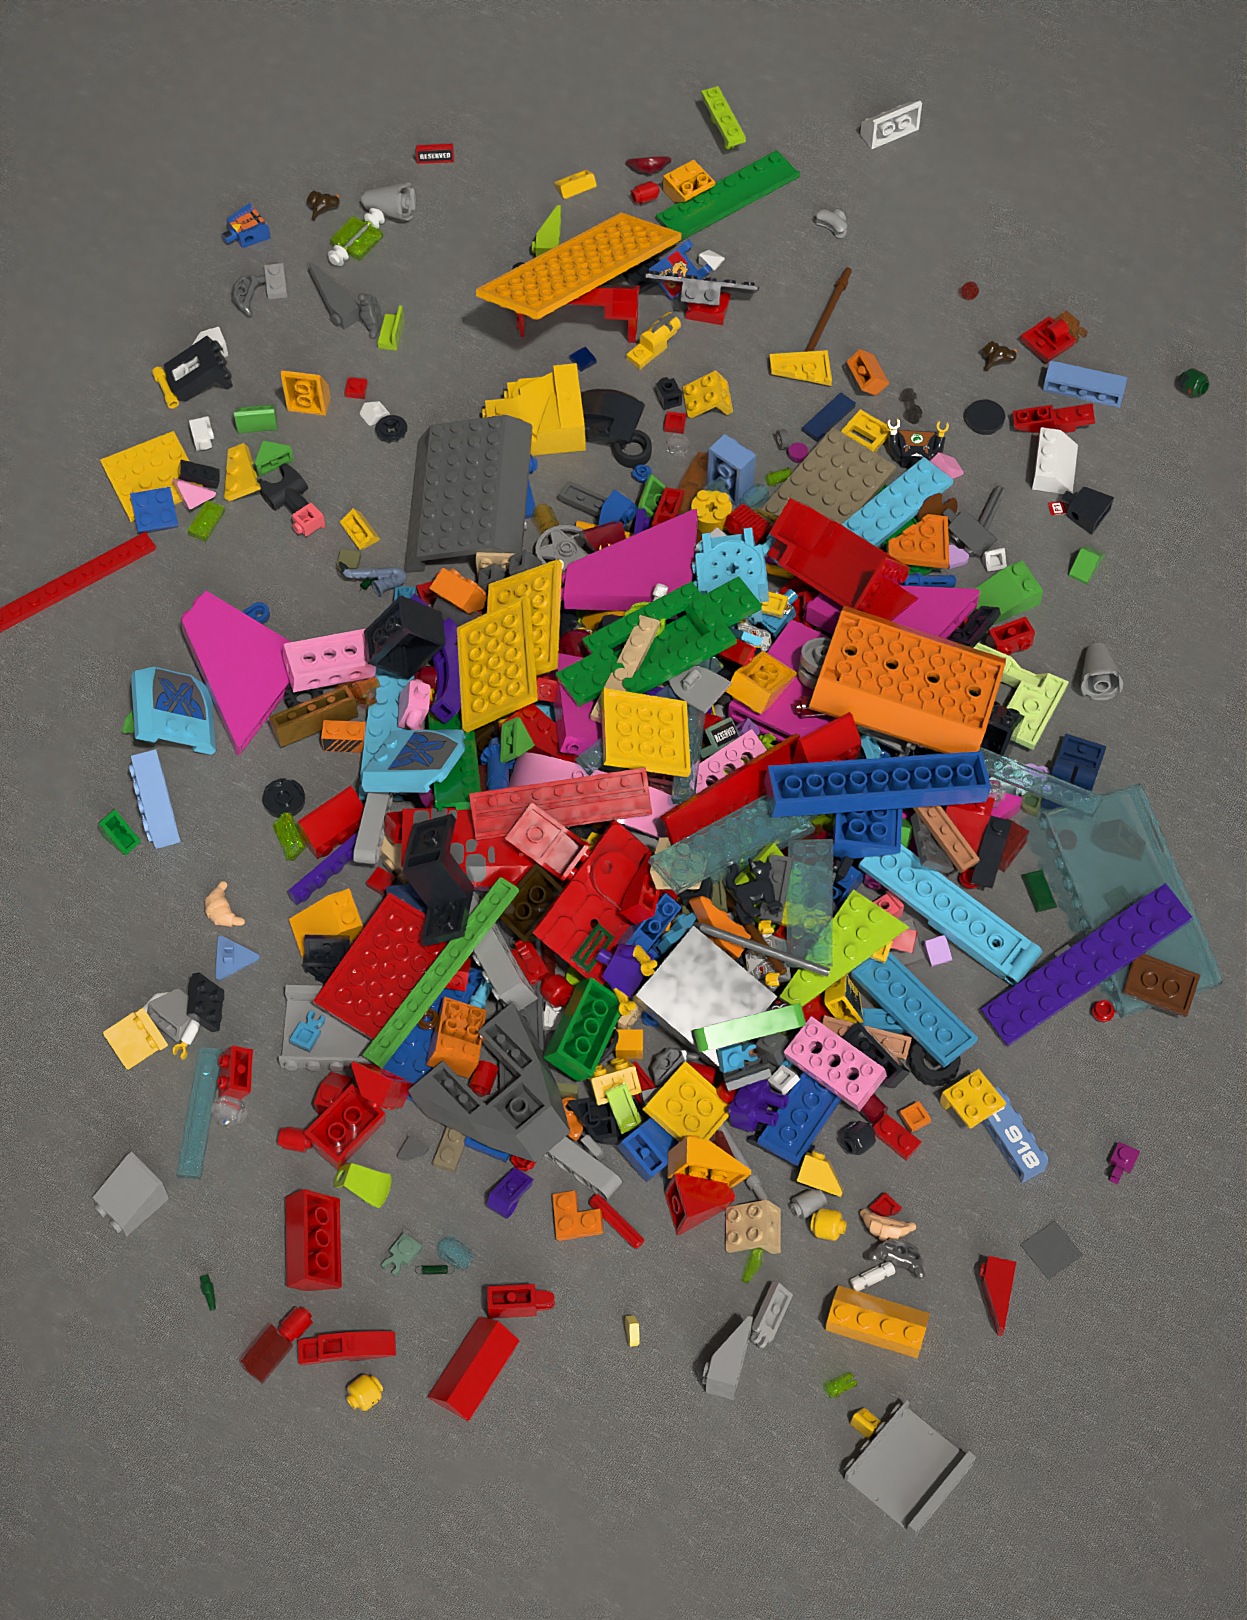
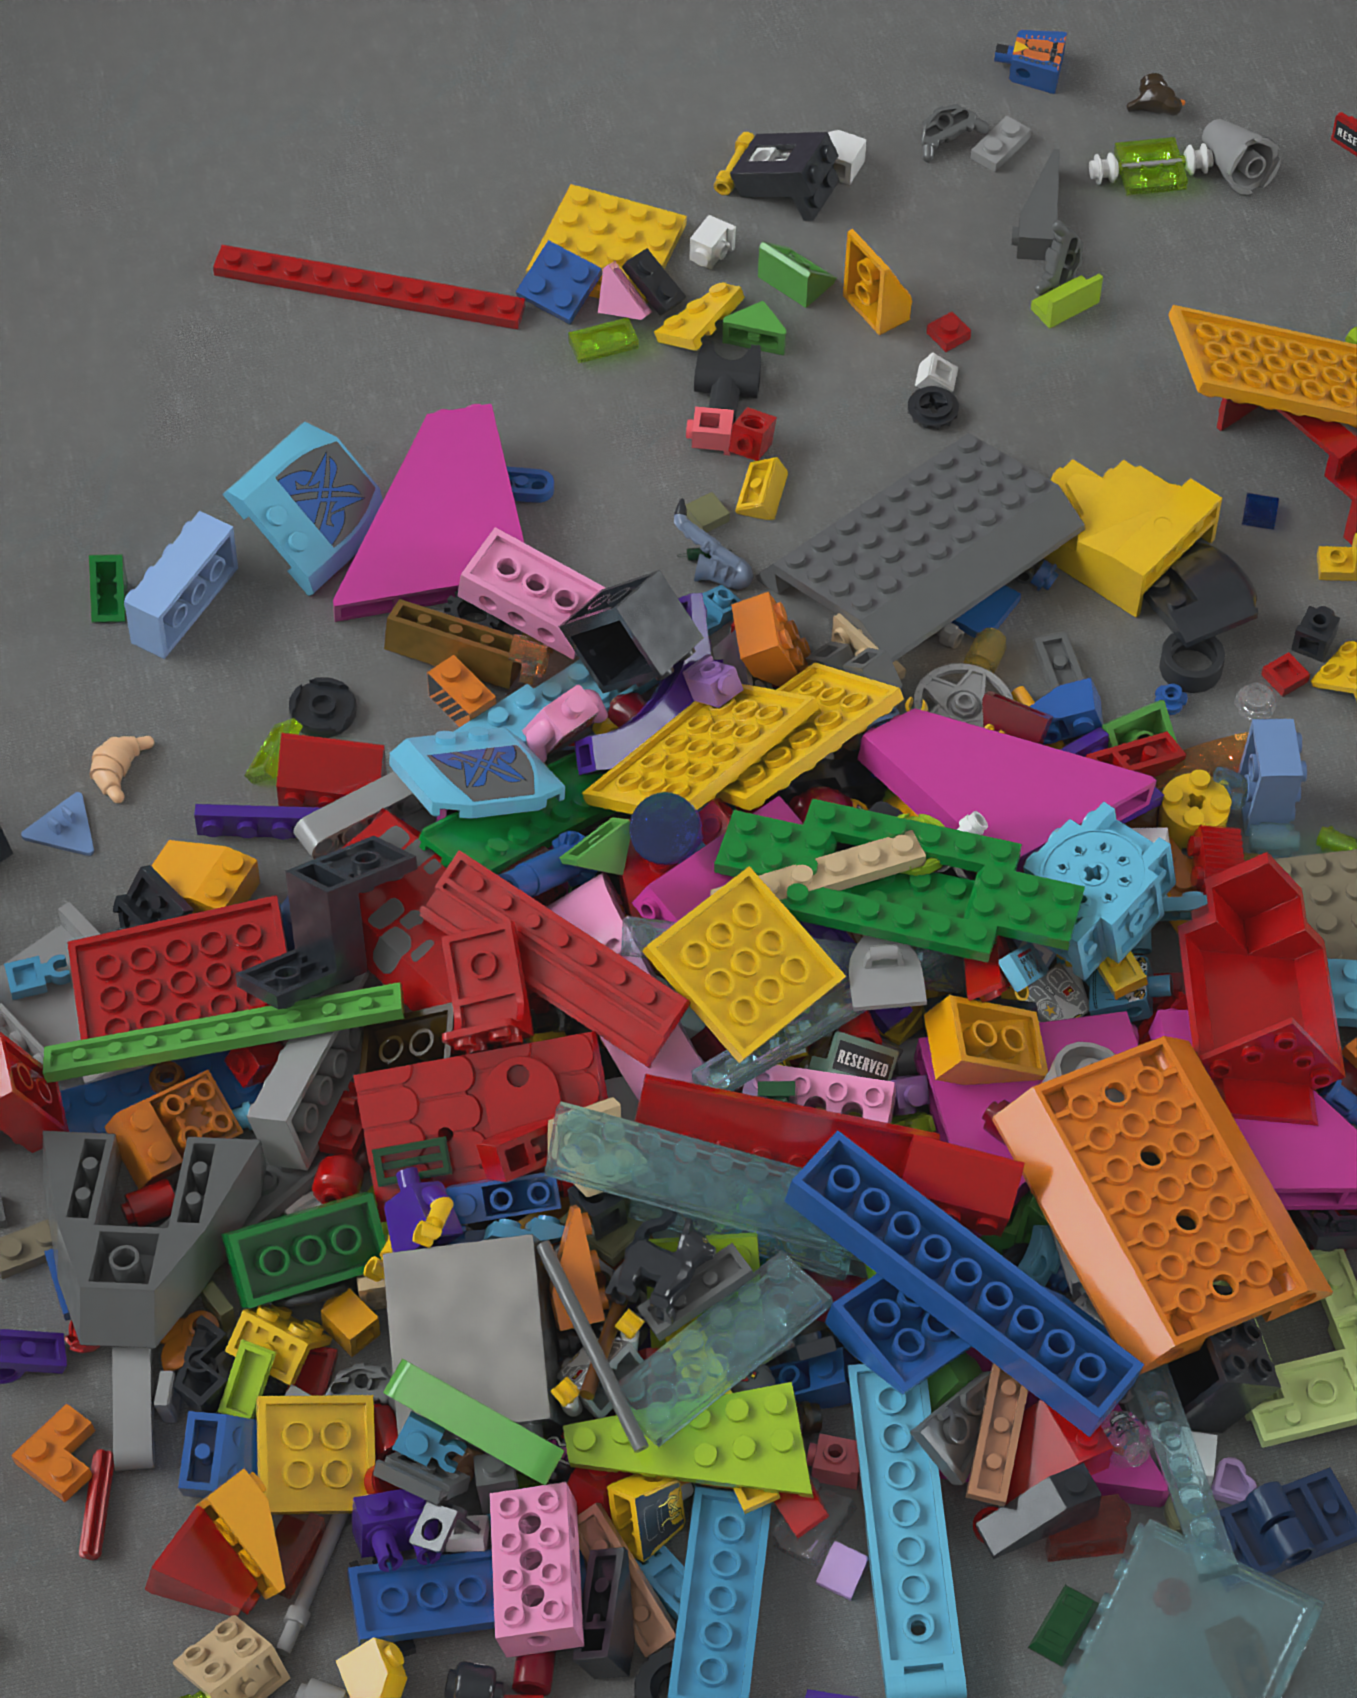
camera: 45 degrees right, 5 degrees down
(330, 506) = (752, 434): none -> red brick
(461, 629) = (712, 681): none -> medium lavender brick
(538, 706) = (665, 828): none -> clear blue tile
(714, 776) = (778, 1090): none -> dark green plate
(777, 1076) = (450, 1517): none -> bracket

